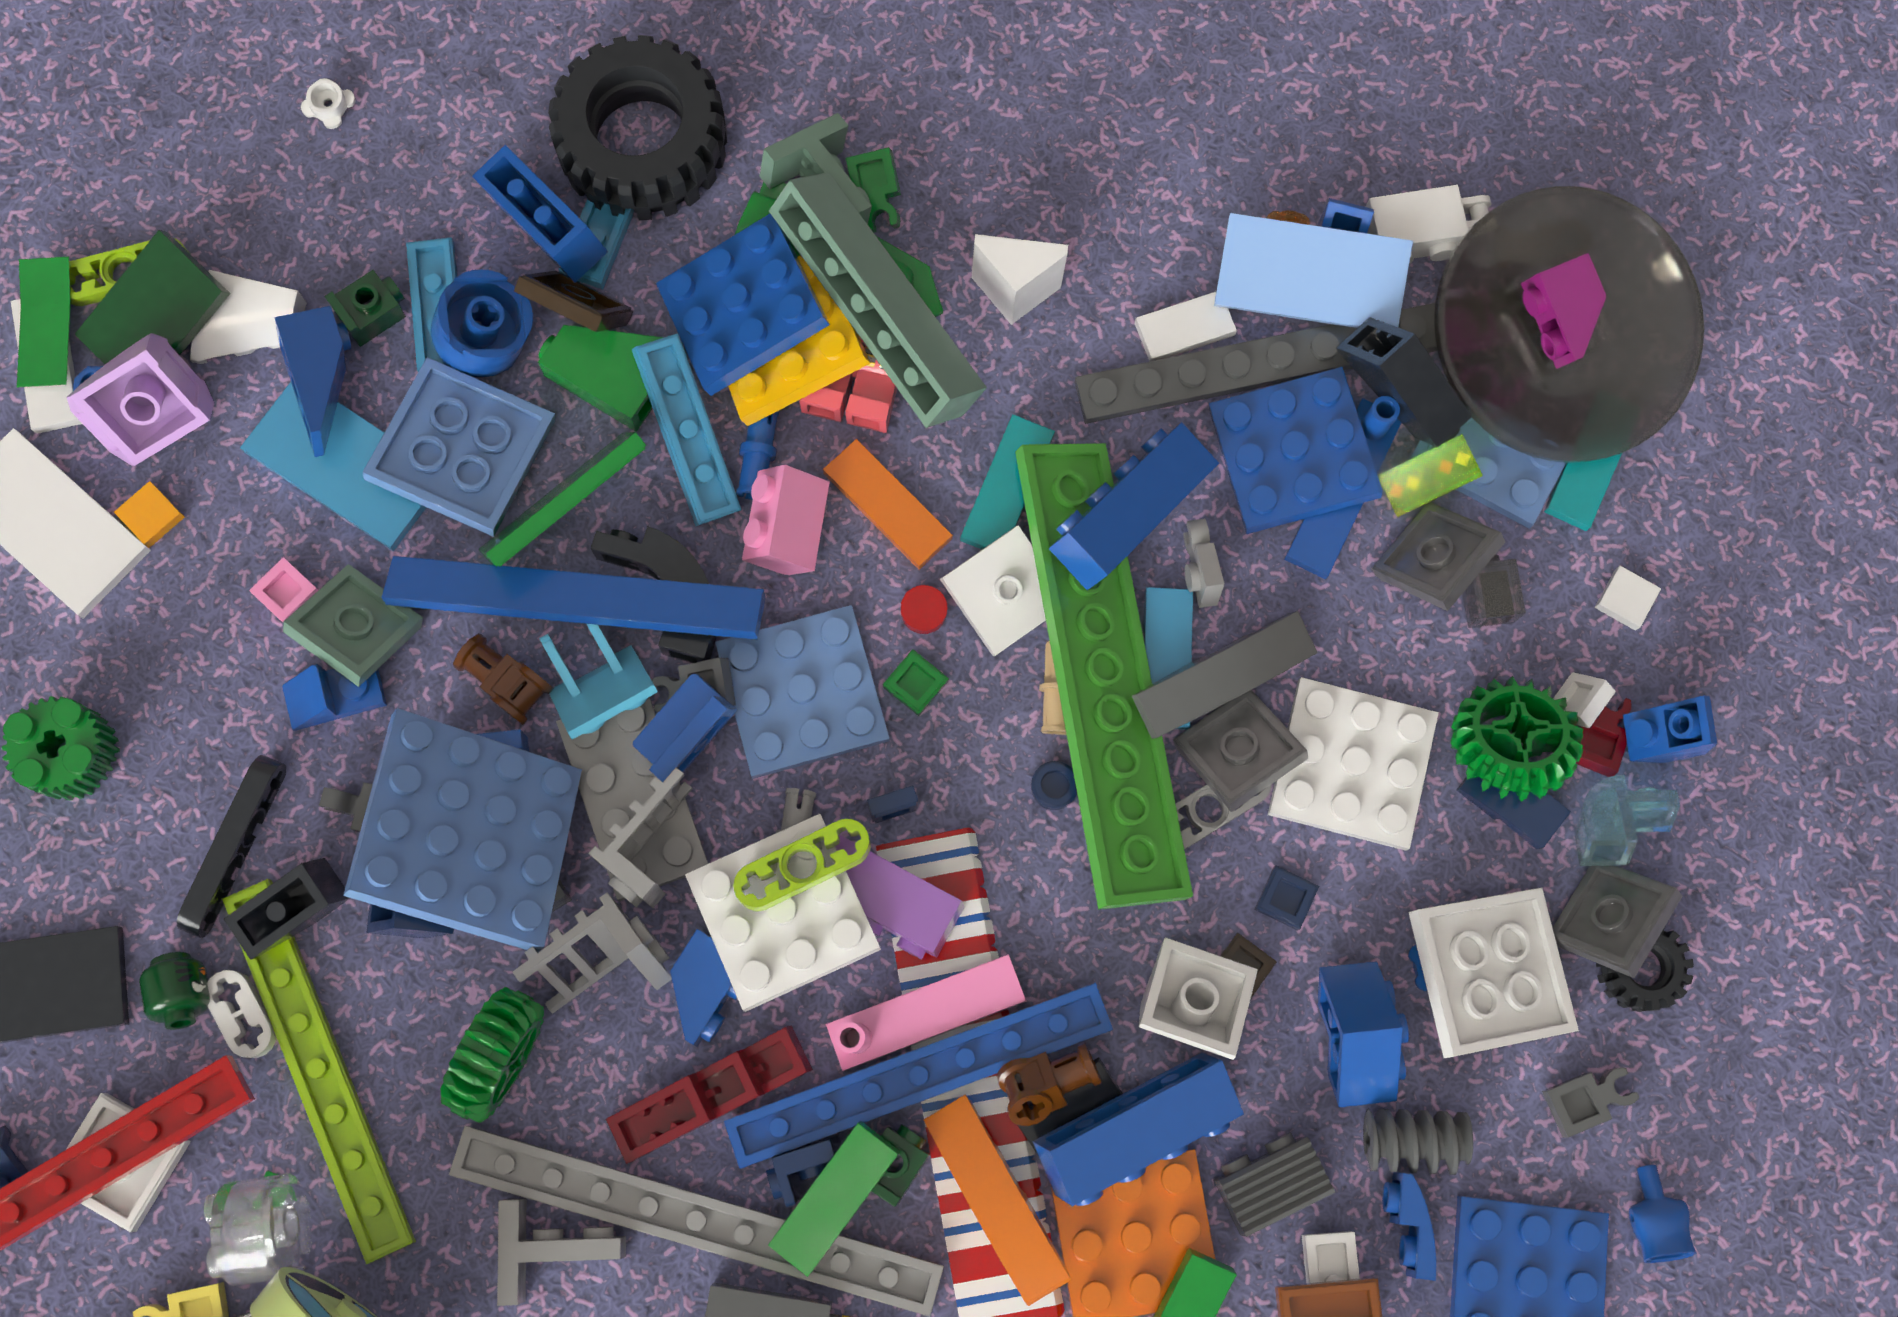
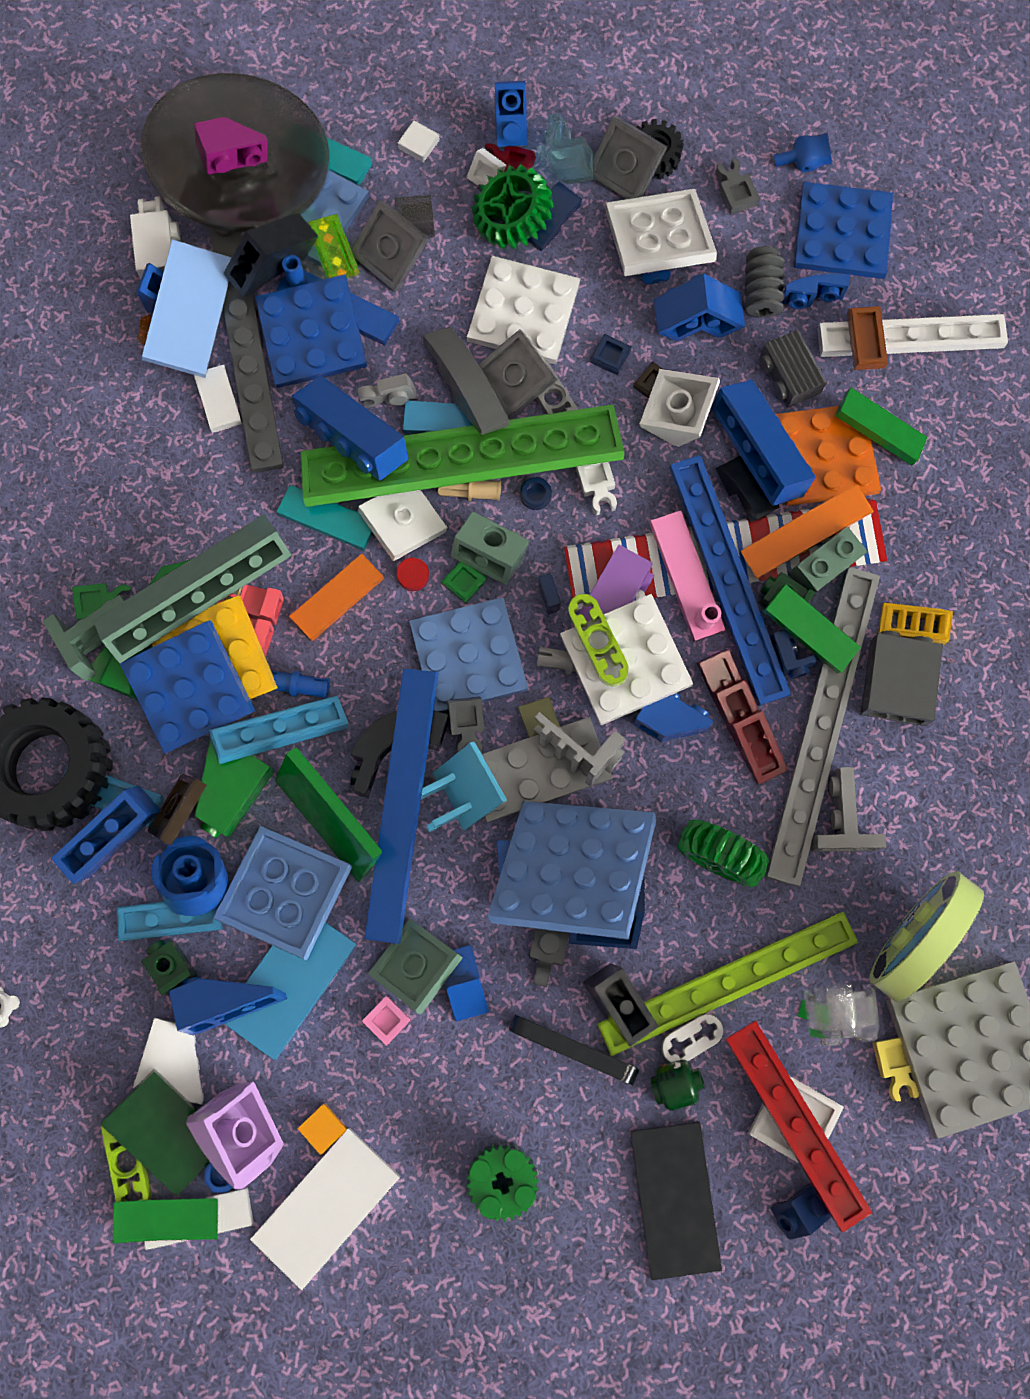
camera: 85 degrees left, 0 degrees up
(507, 683) = (458, 857): reddish brown connector -> none
(614, 935) = (637, 768): light grey plate -> none
(683, 727) = (498, 727): blue panel -> none
(711, 794) = (531, 709): none -> olive tile
(785, 520) = (348, 661): bright pink brick -> none
(938, 730) = (489, 548): none -> sand green brick
(947, 1230) = (828, 560): none -> sand green brick
(1017, 272) = (175, 502): white slope -> none
(1045, 1083) = (736, 496): reddish brown connector -> none
(1071, 876) = (597, 481): none -> white plate

